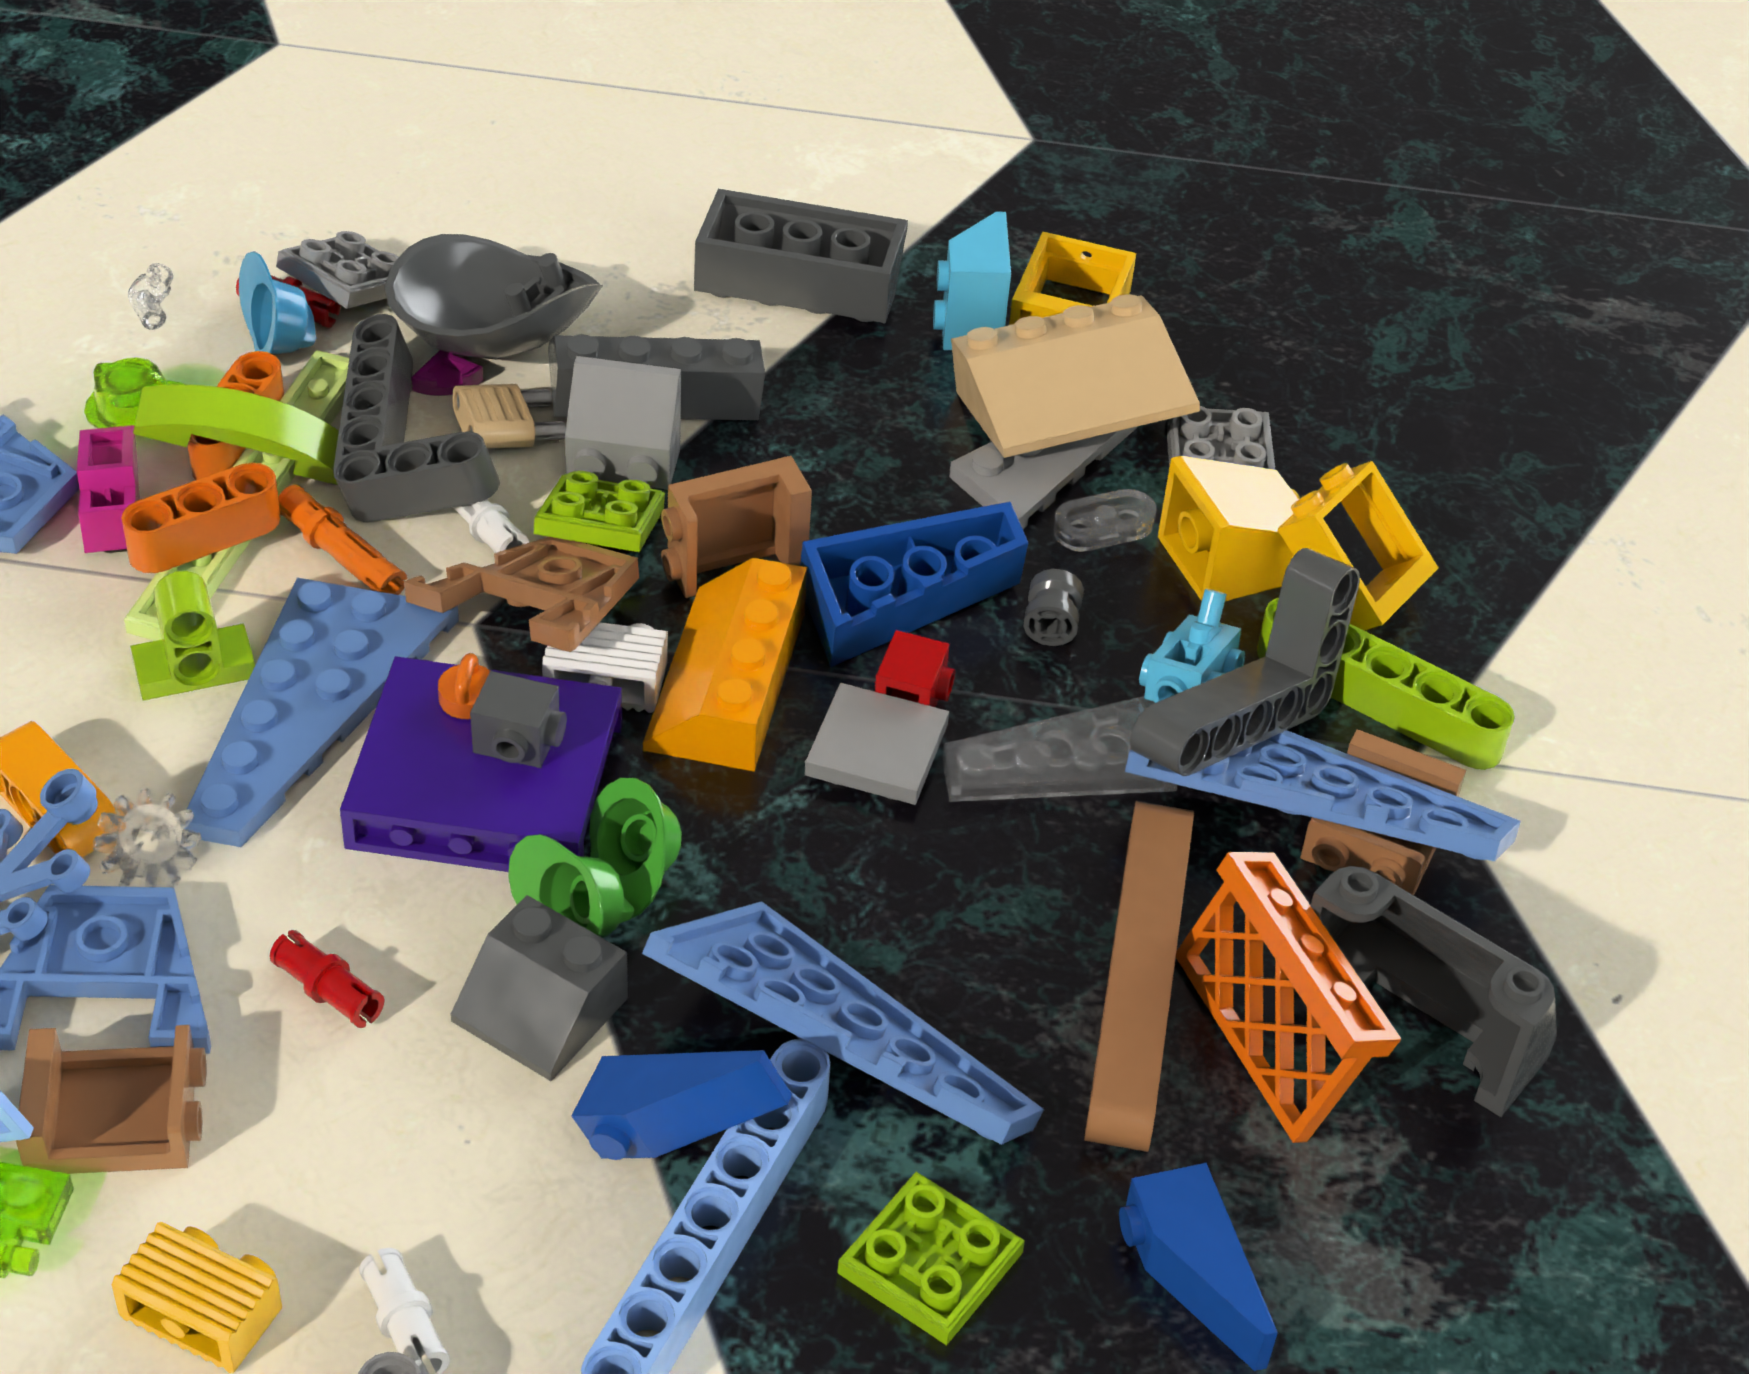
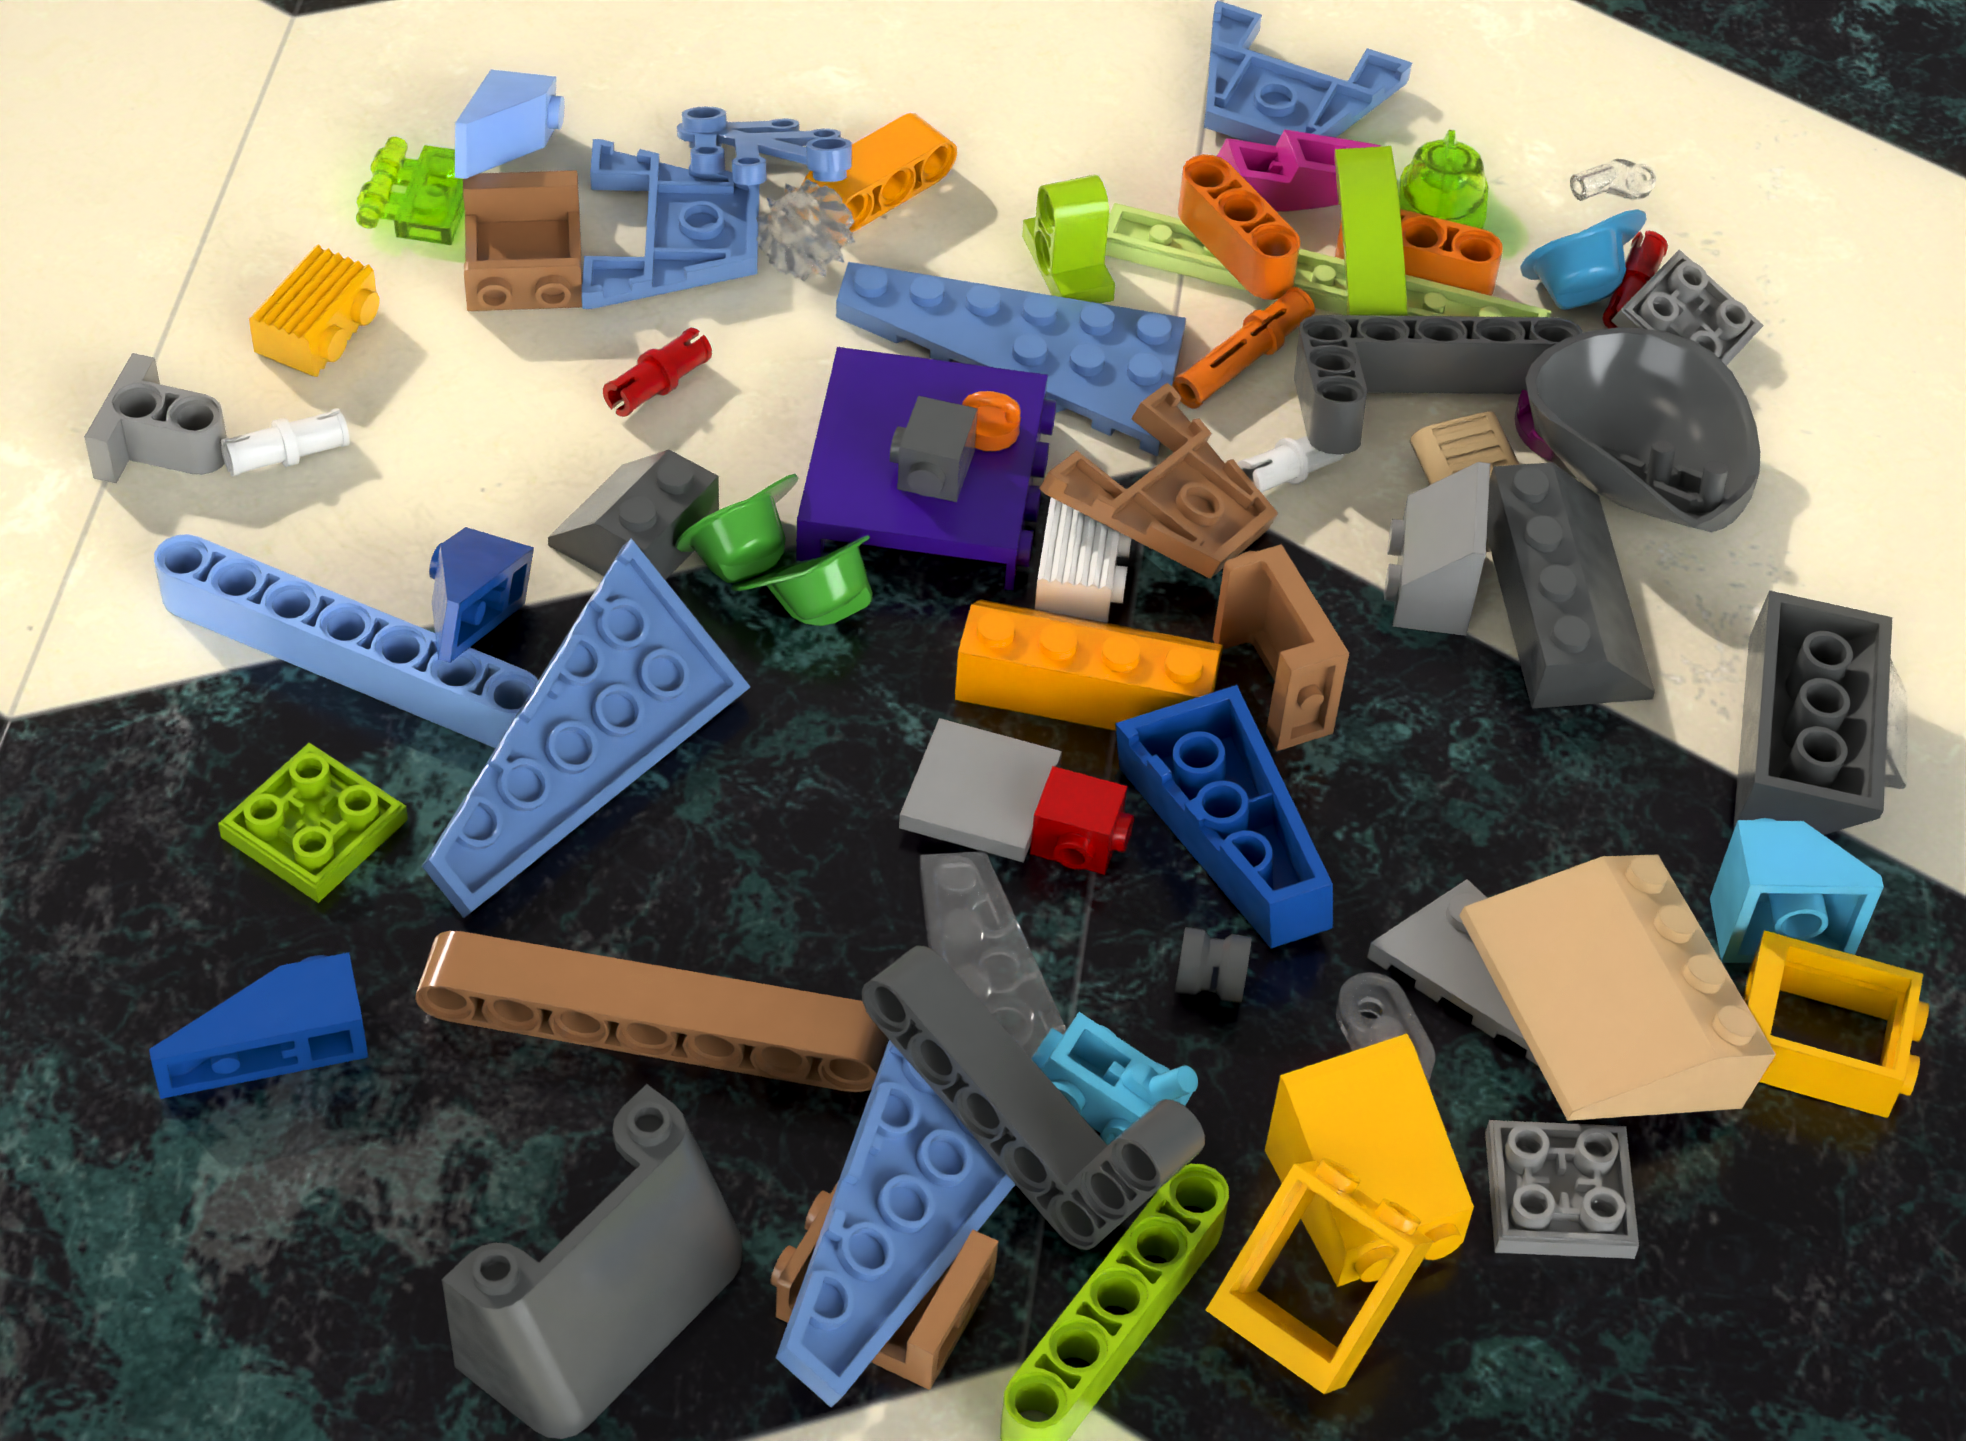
camera: 90 degrees right, 5 degrees up
(600, 511) = (1326, 542): lime tile -> none
(1304, 960) = (572, 1085): orange fence -> none

